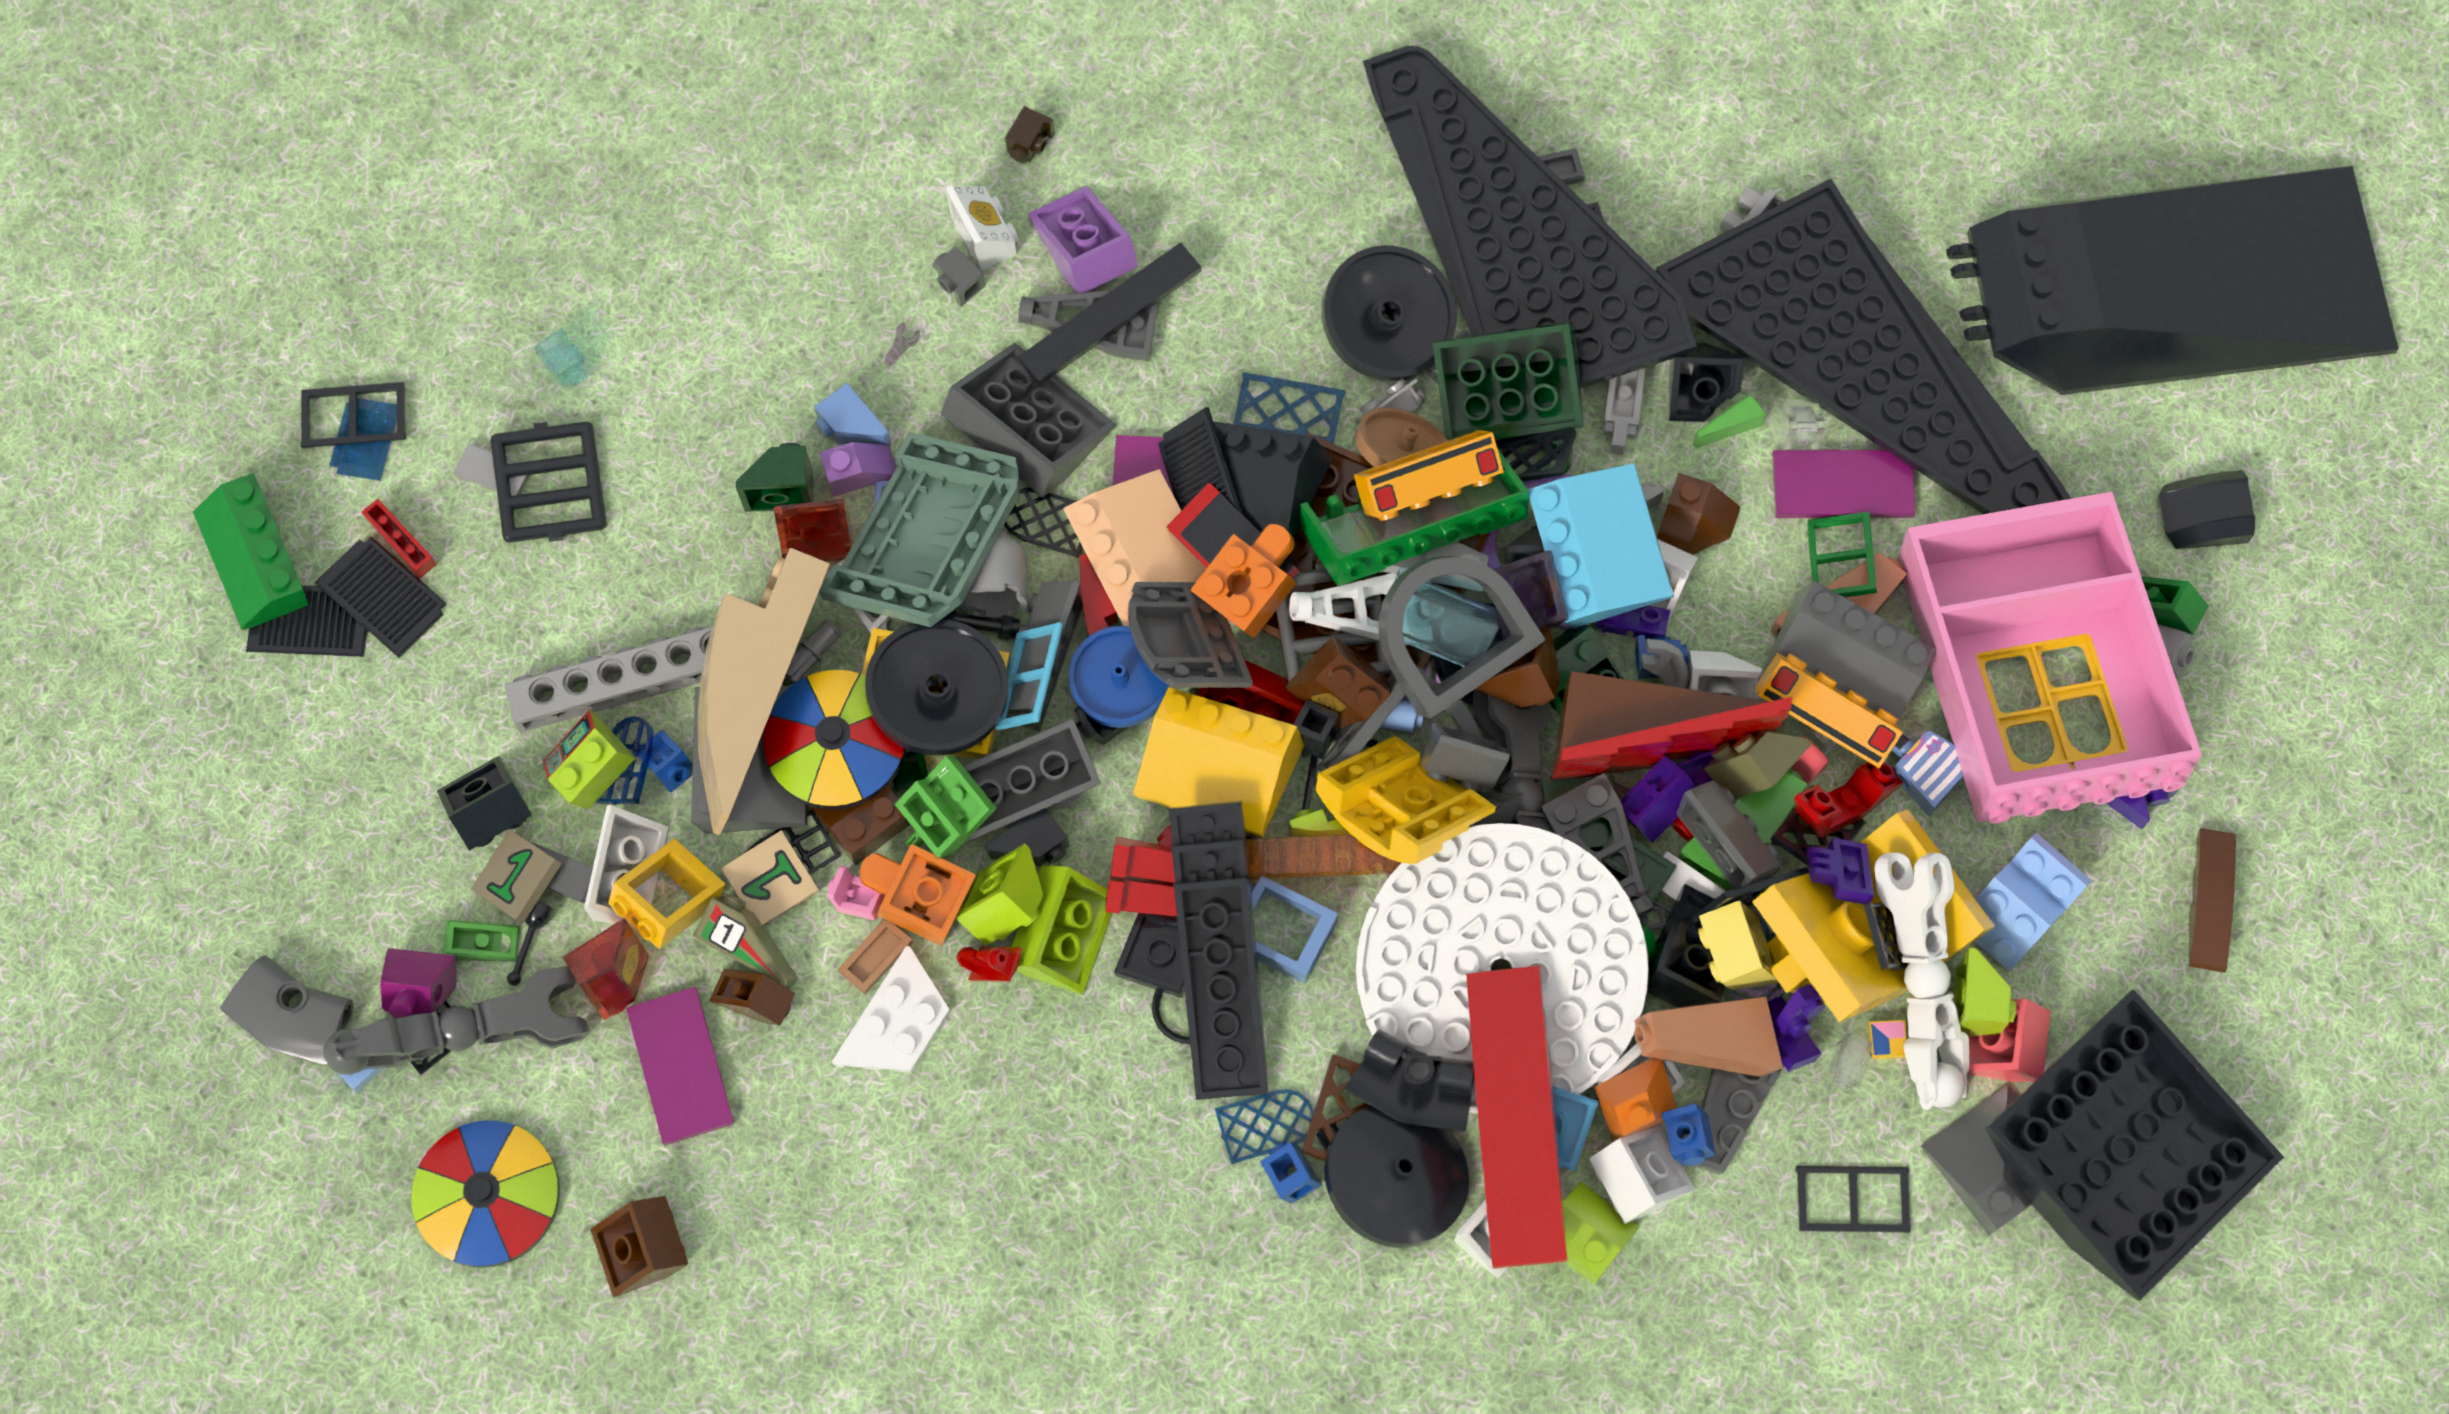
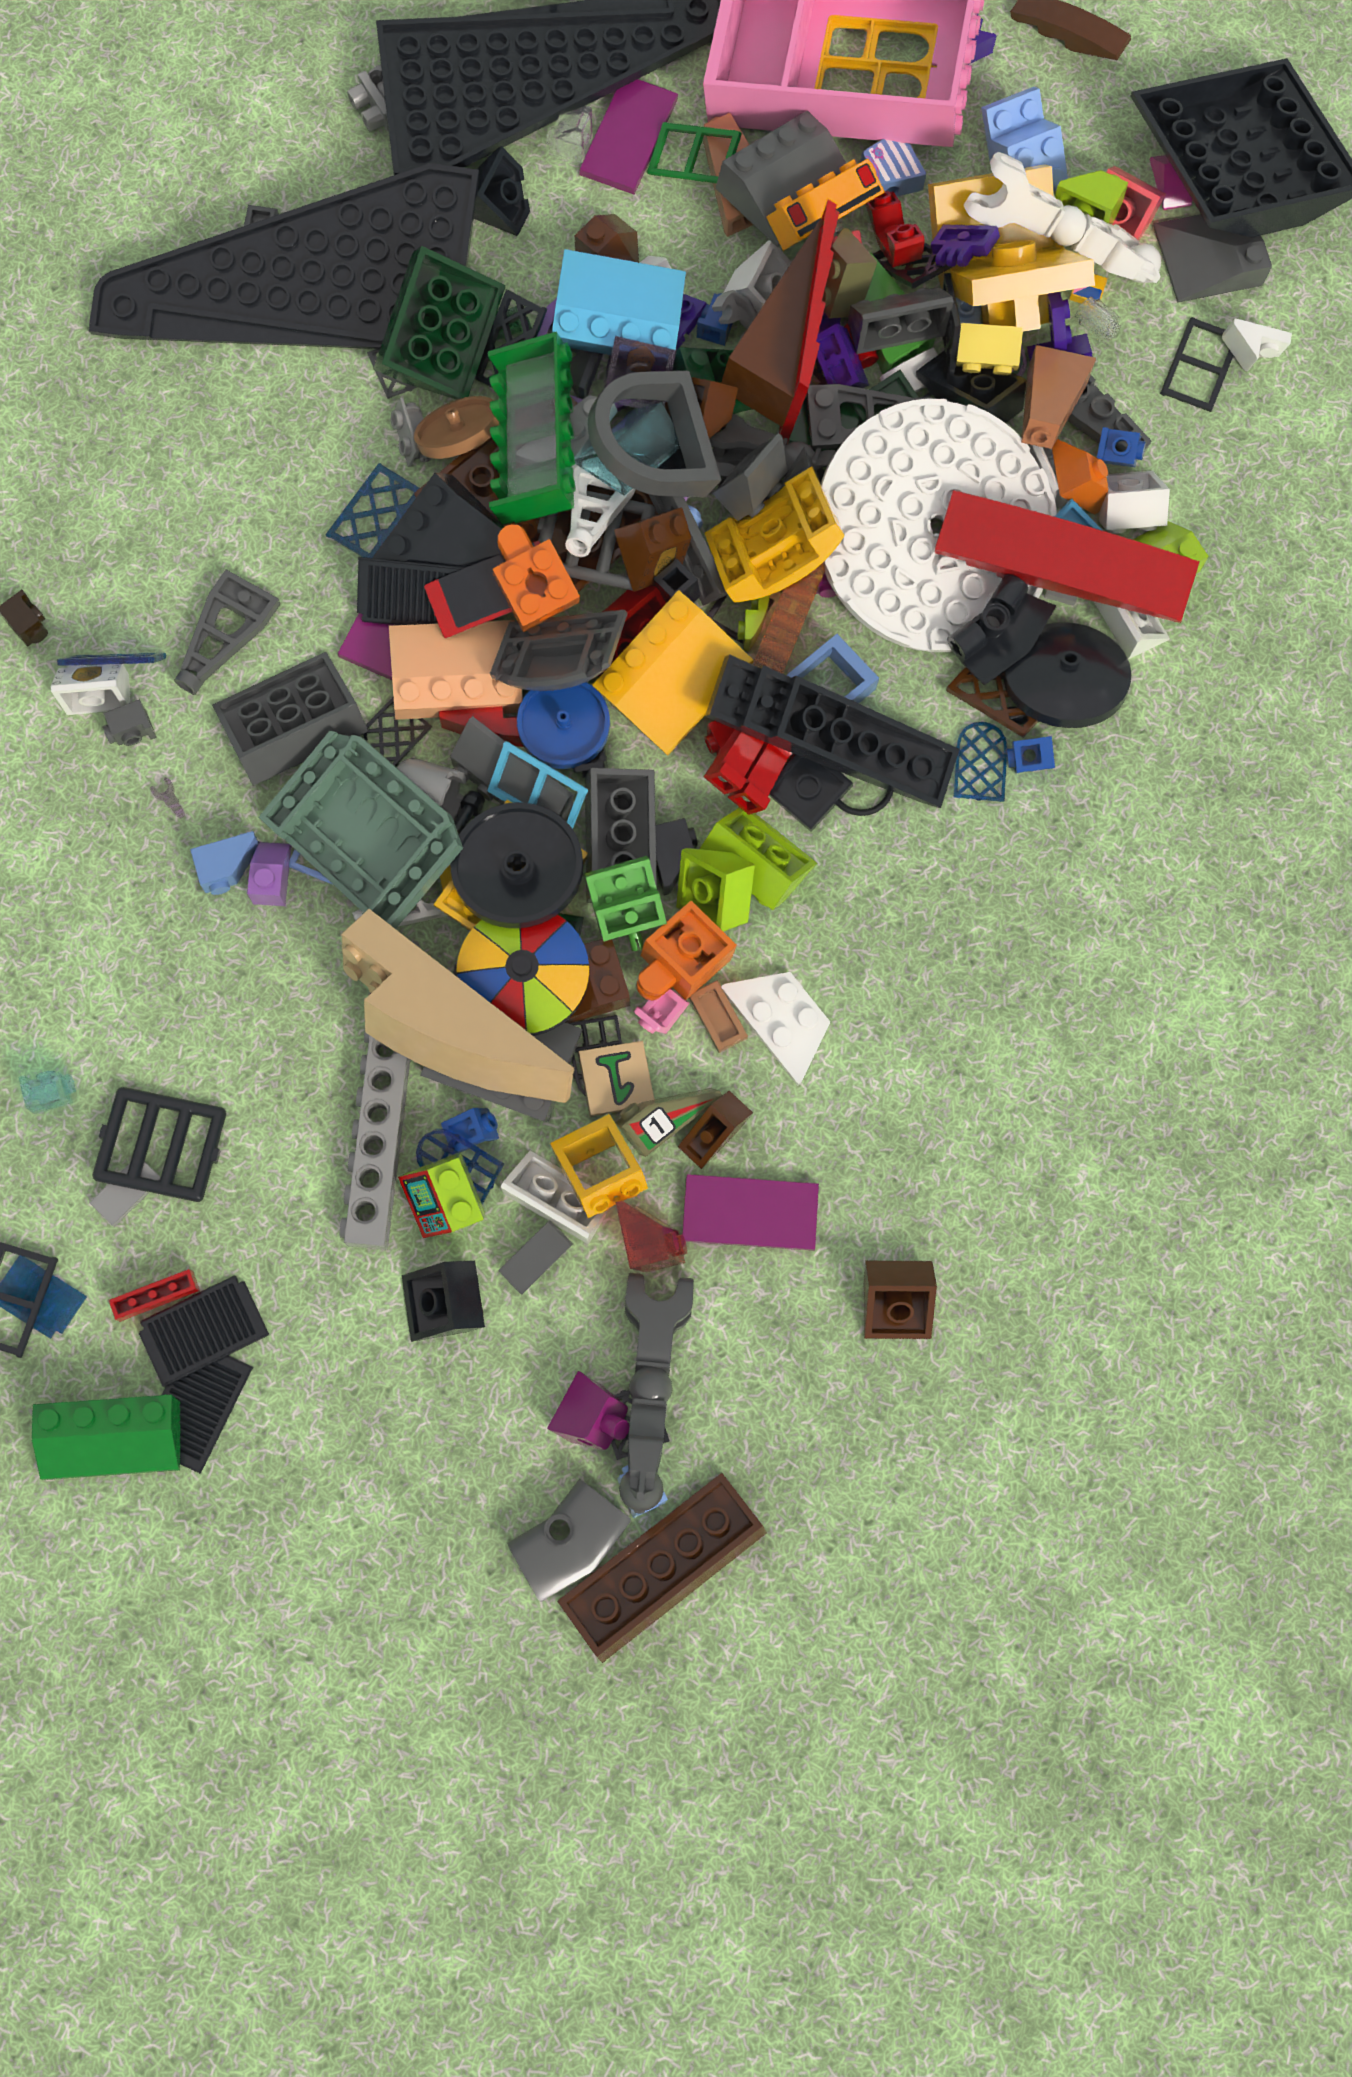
camera: 75 degrees left, 5 degrees up
(292, 1114) = (661, 1567): none -> reddish brown arch
(479, 941) = (568, 1349): bright green slope -> none
(485, 1194) = (800, 1418): dish -> none
(516, 876) = (526, 1293): dark tan tile -> none
(538, 918) = (567, 1290): black hinge -> none
(777, 479) = (259, 935): dark green slope -> none
(815, 529) = (320, 925): clear red slope -> none
(990, 963) = (768, 919): red hinge -> none
(1028, 260) = (101, 659): none -> clear blue window
(1084, 240) = (145, 610): medium lavender slope -> none
(1109, 313) = (227, 613): black tile -> none
(1393, 284) = (330, 396): black dish -> none
(1429, 474) = (506, 401): light orange brick -> none
(1623, 408) = (497, 262): light grey hinge -> none
(1737, 419) = (541, 181): bright green slope -> none
(1881, 946) = (1028, 236): black window -> none
(1900, 1235) = (1249, 340): none -> white slope

